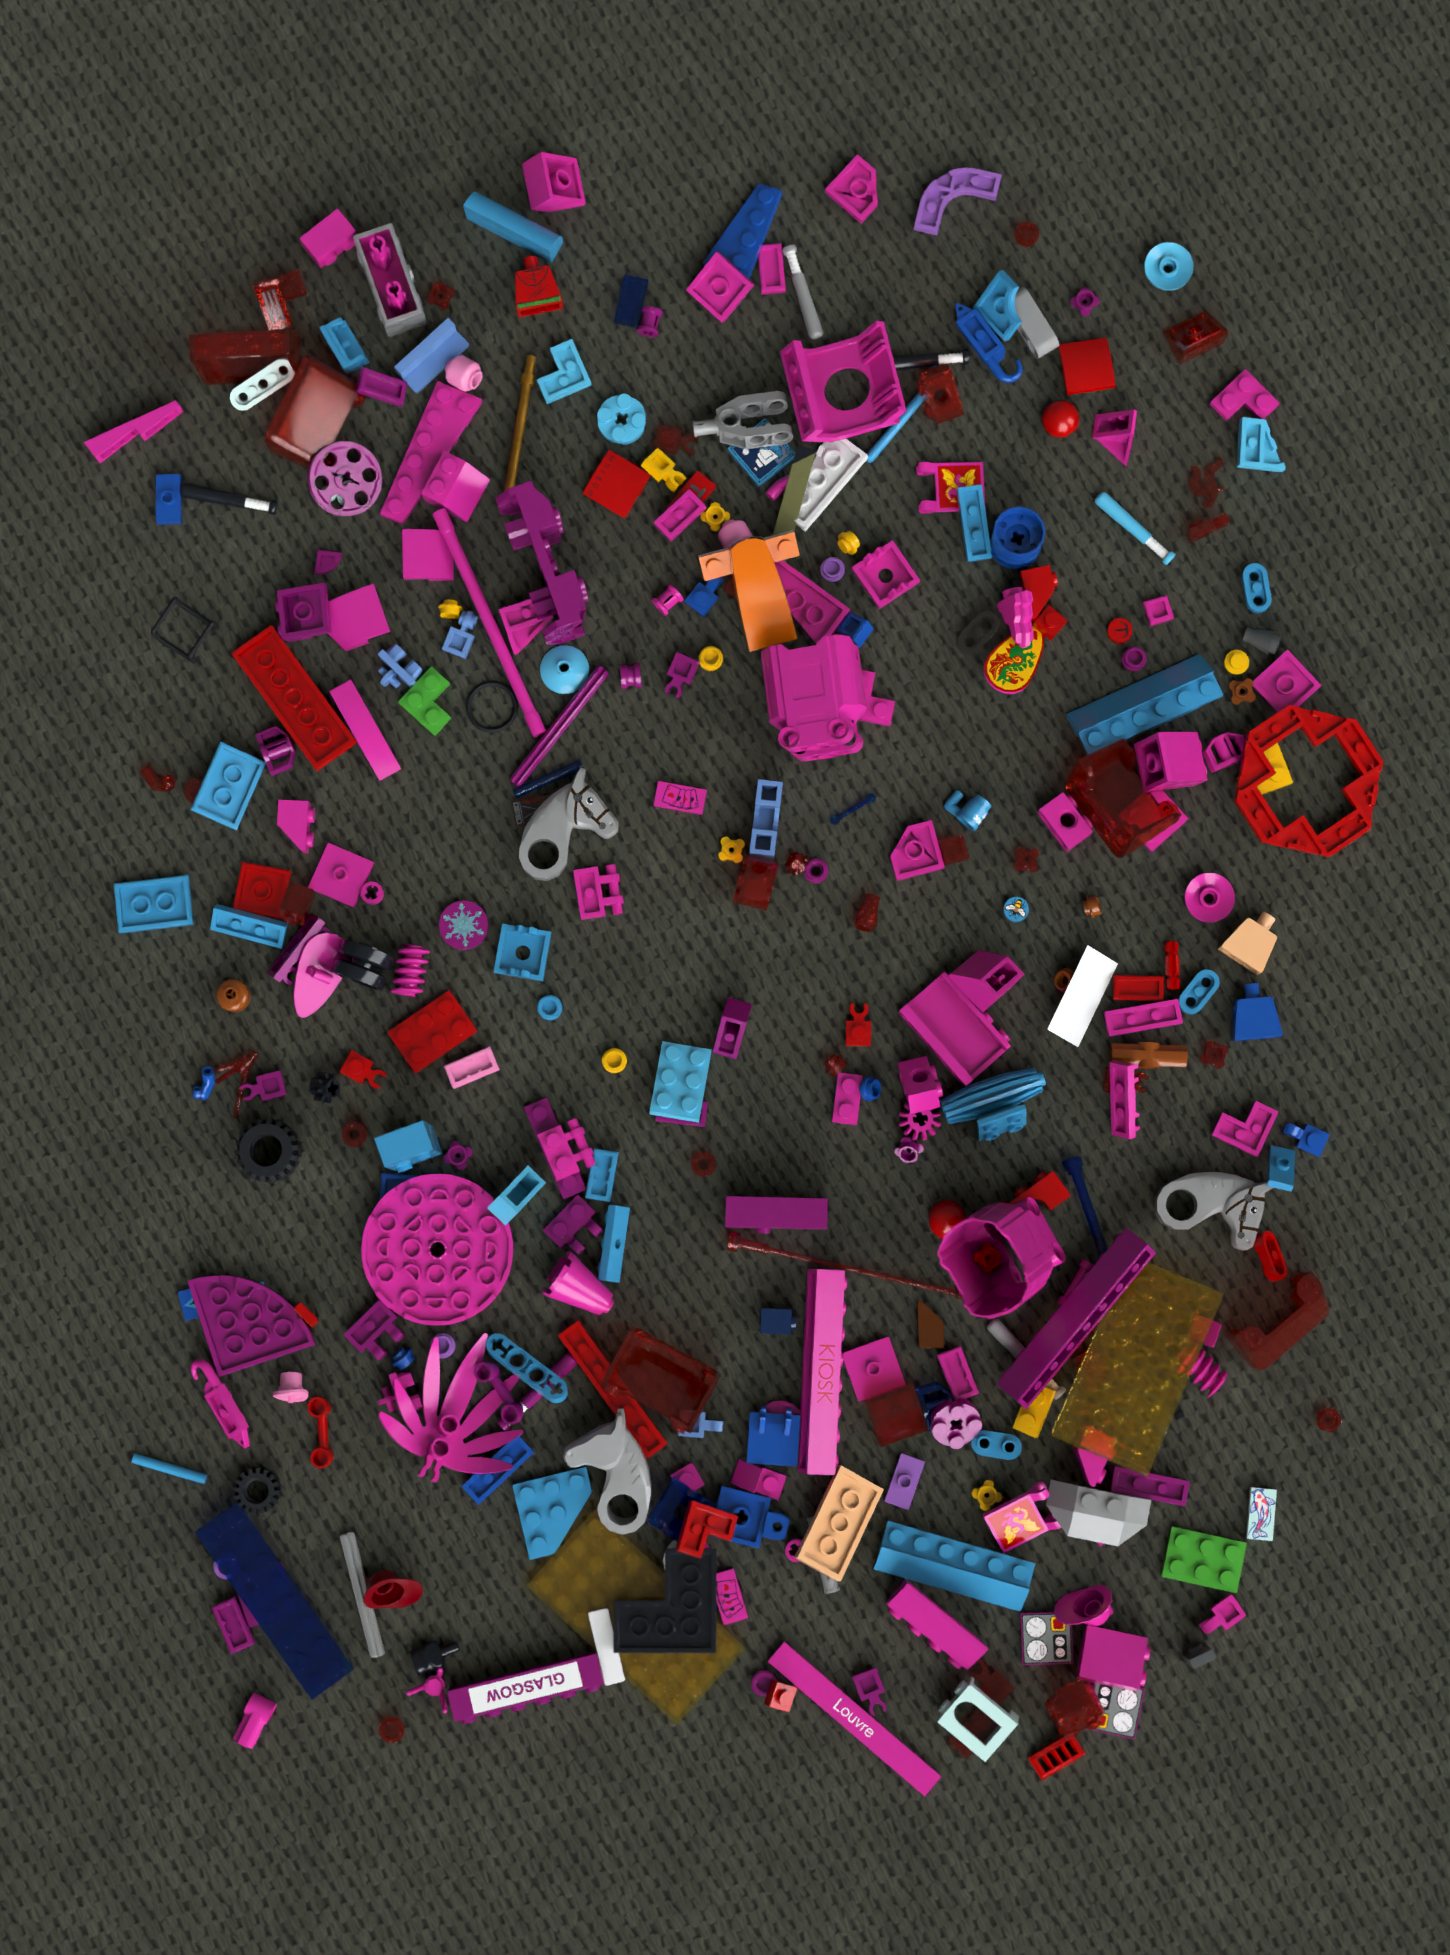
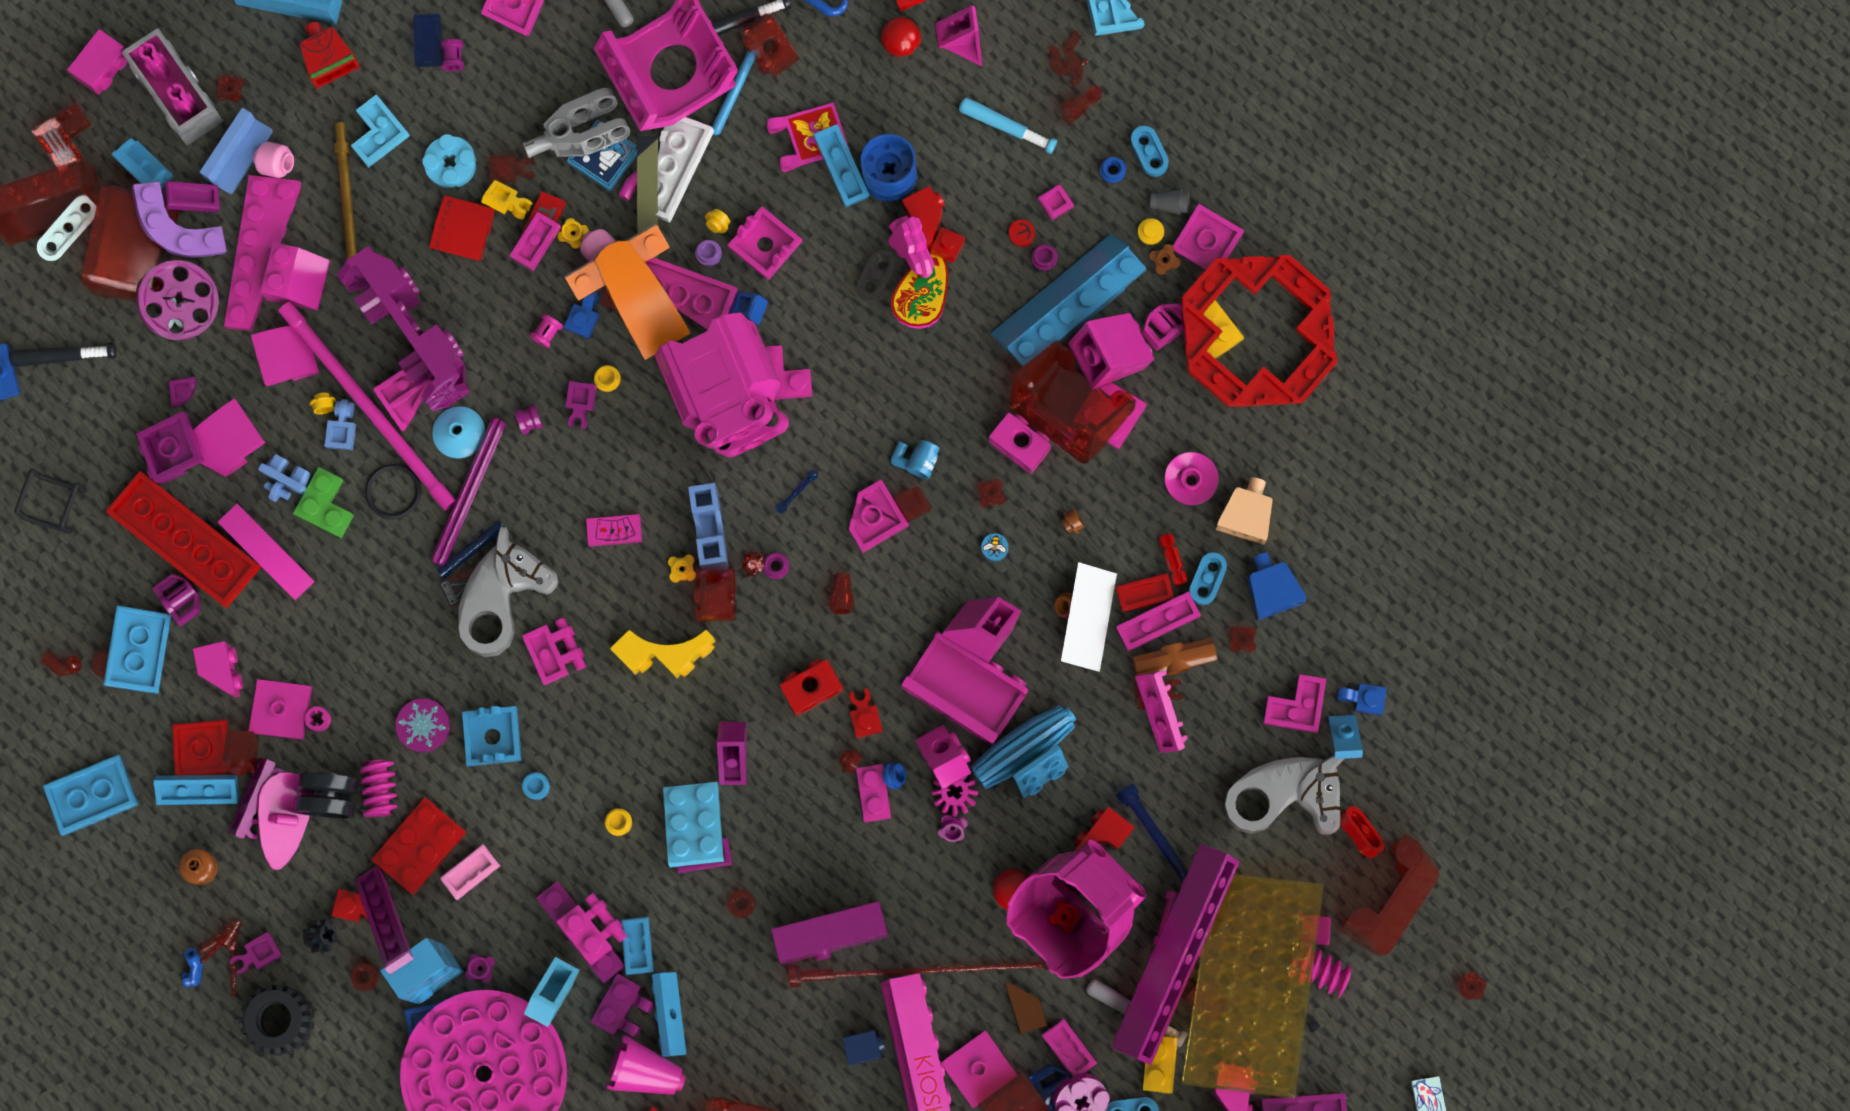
camera: 10 degrees left, 5 degrees down
(349, 413) = (172, 237): none -> medium lavender plate
(387, 1091) = (383, 920): none -> magenta tile
(705, 930) = (676, 658): none -> yellow arch
(833, 991) = (827, 686): none -> red brick
(1220, 588) = (1112, 162): none -> blue plate

